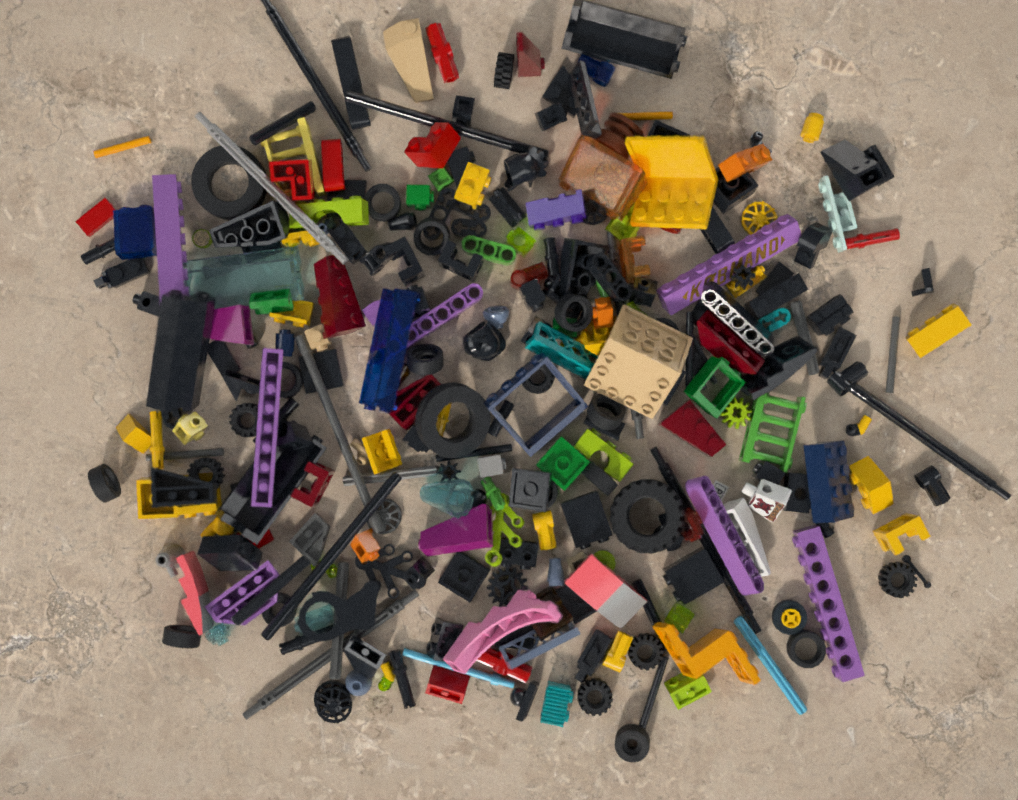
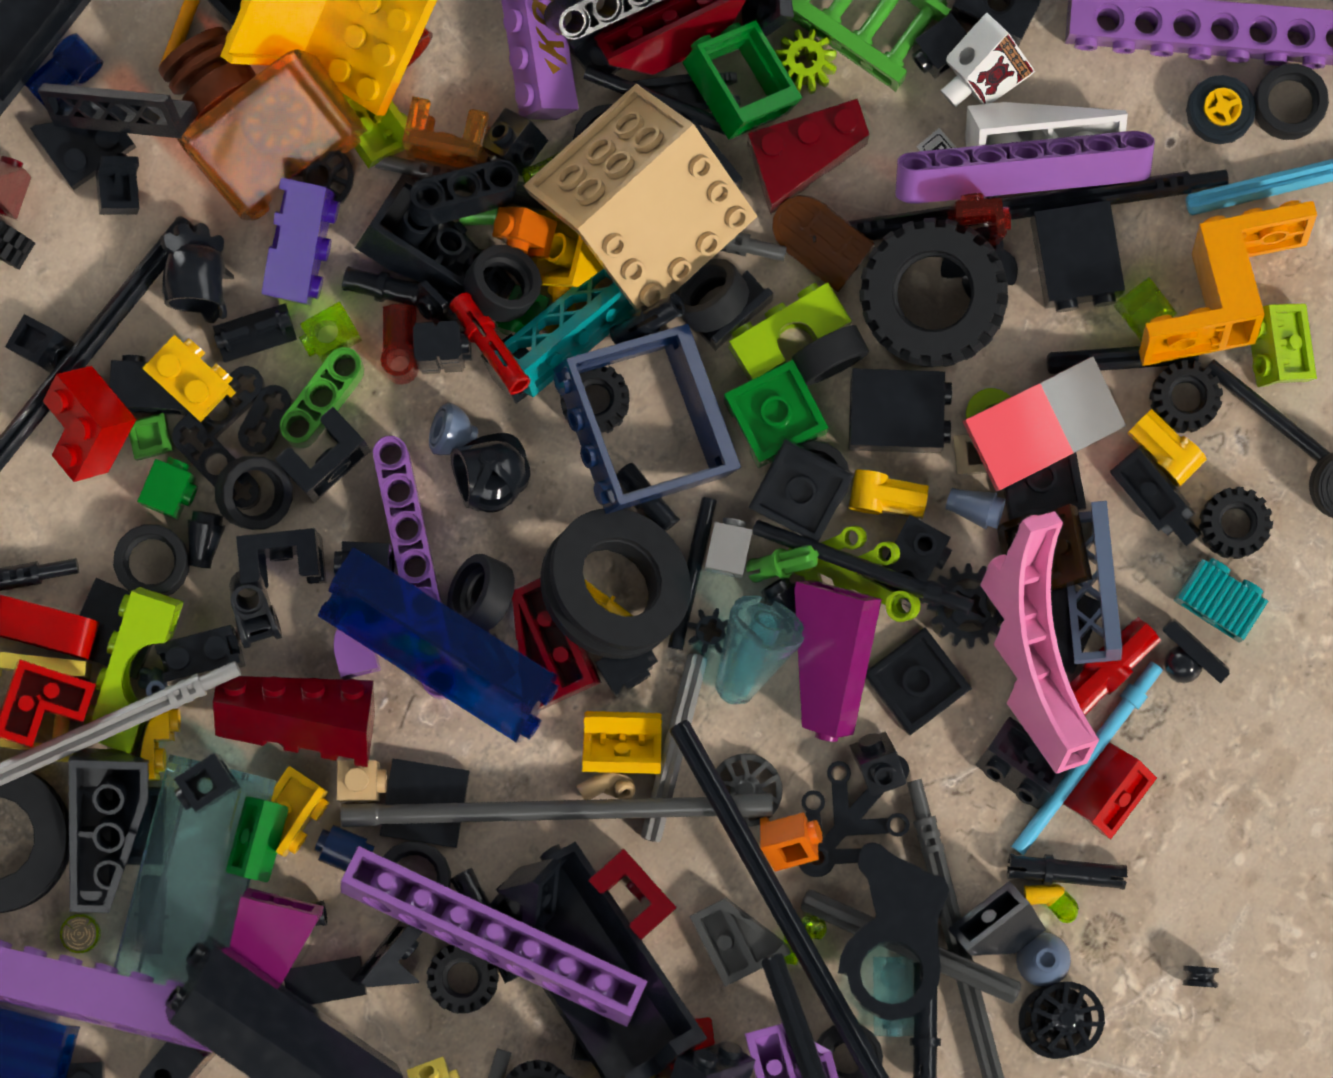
camera: 65 degrees left, 5 degrees down
(277, 264) = (212, 768): none -> black brick
(377, 758) = (1200, 976): none -> black bush
(504, 570) = (932, 592): none -> black bar
(552, 301) = (467, 312): none -> red pin
(589, 393) = (665, 309): none -> black pin
(653, 461) = (837, 246): none -> reddish brown window

